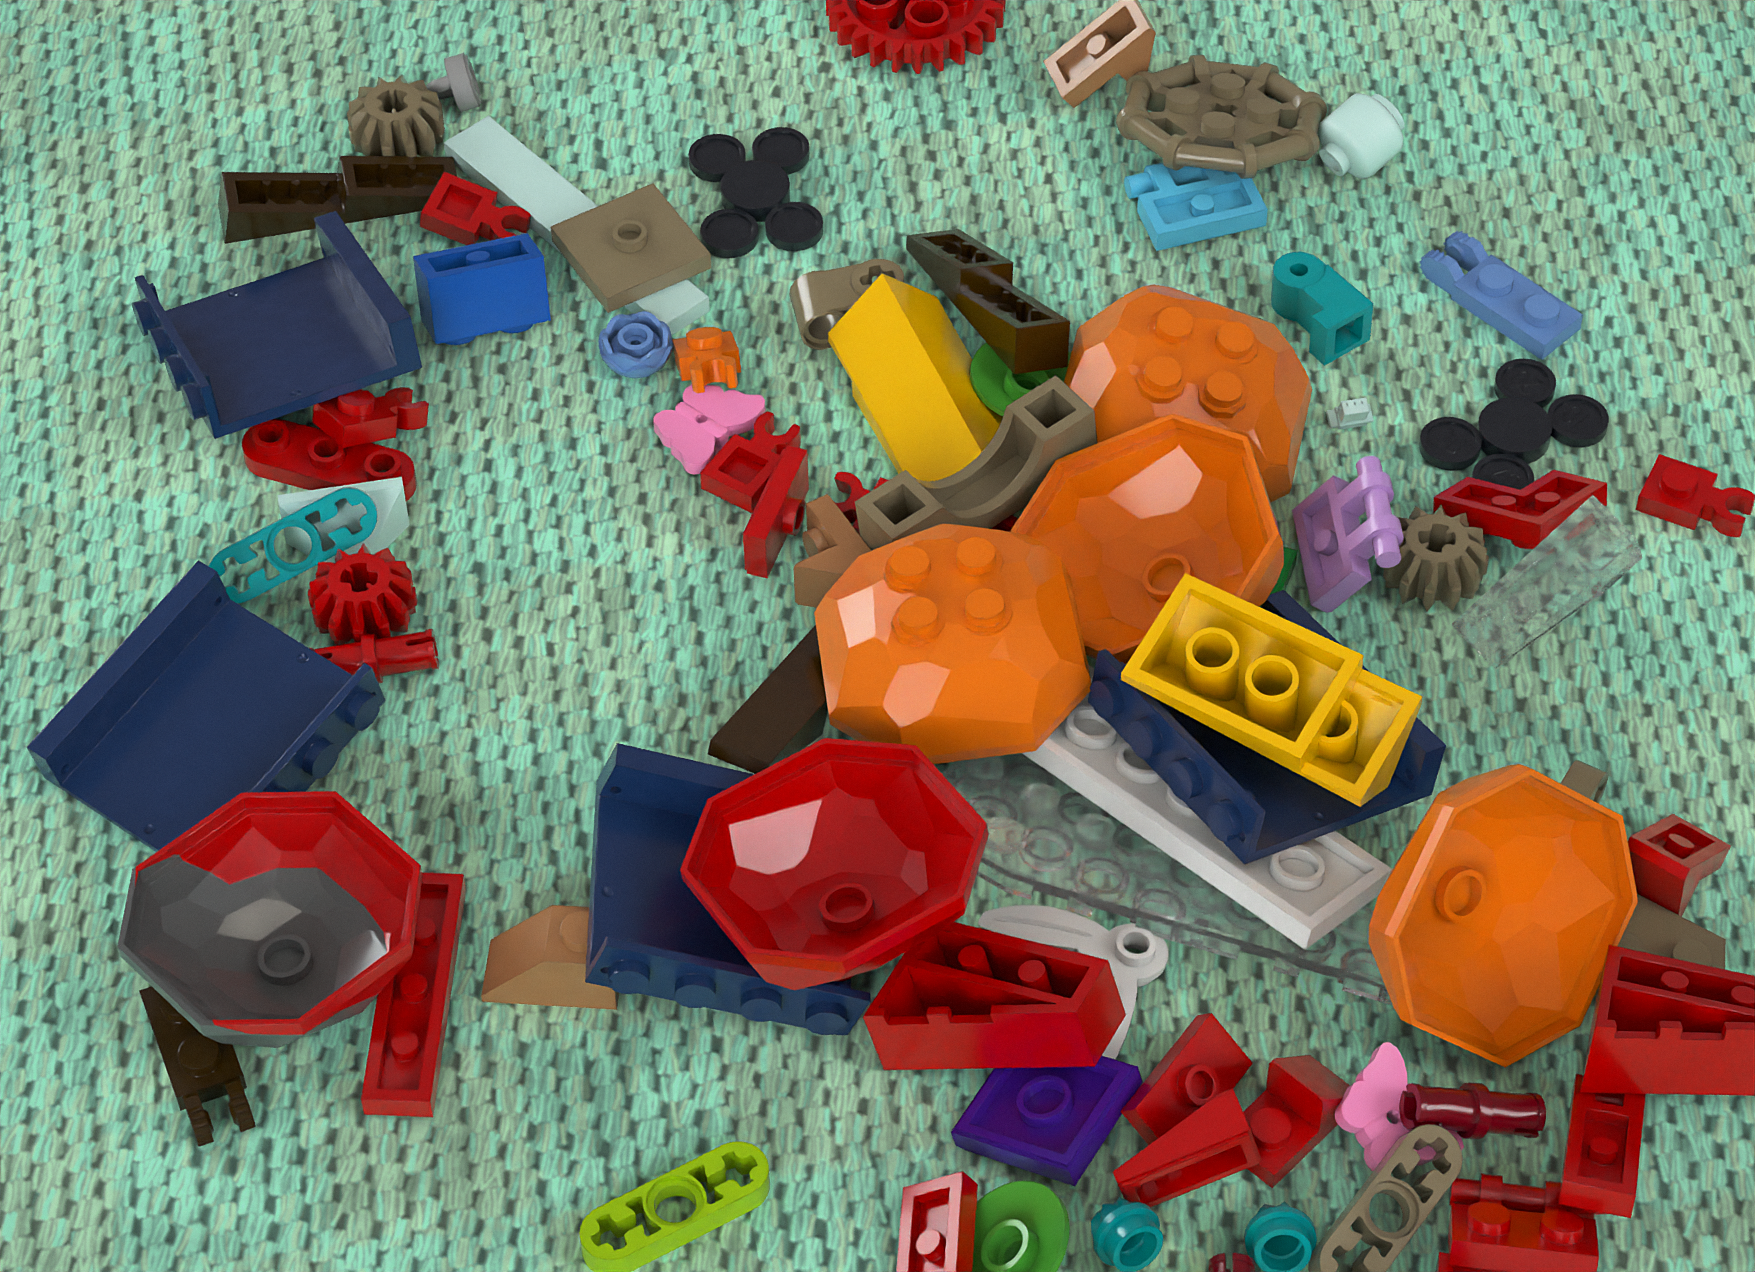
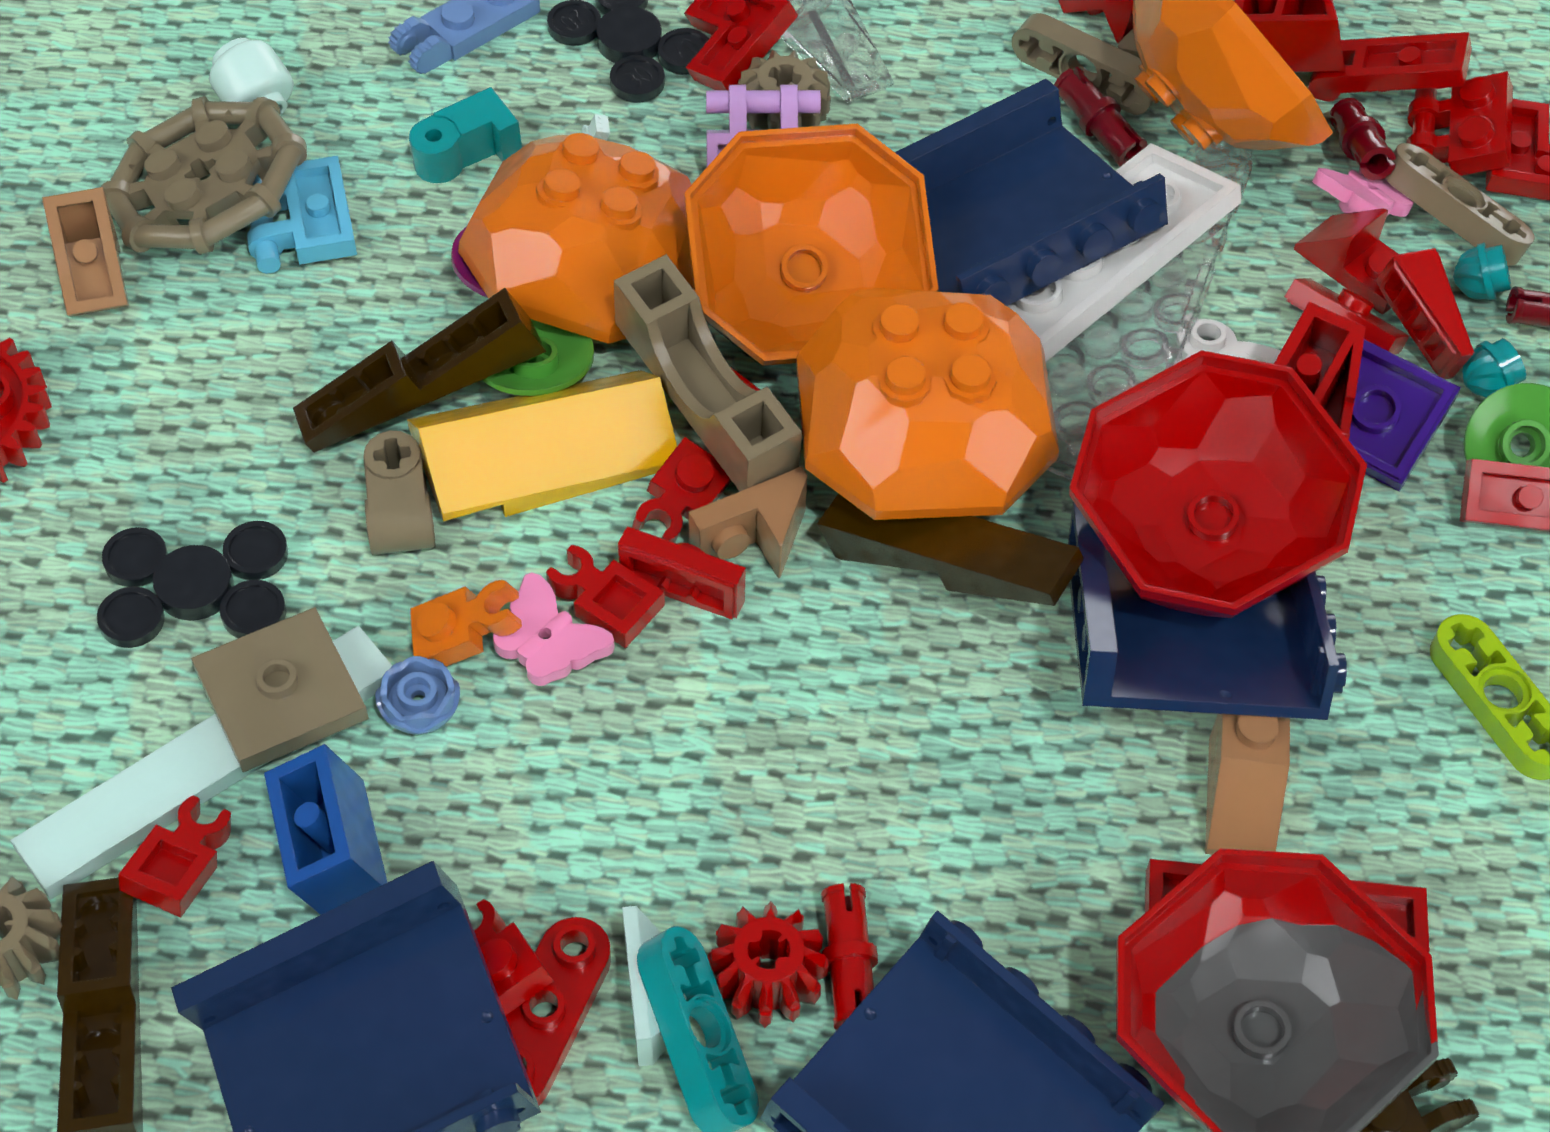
camera: 90 degrees left, 5 degrees up
(1275, 689) = (1010, 167): yellow slope -> none

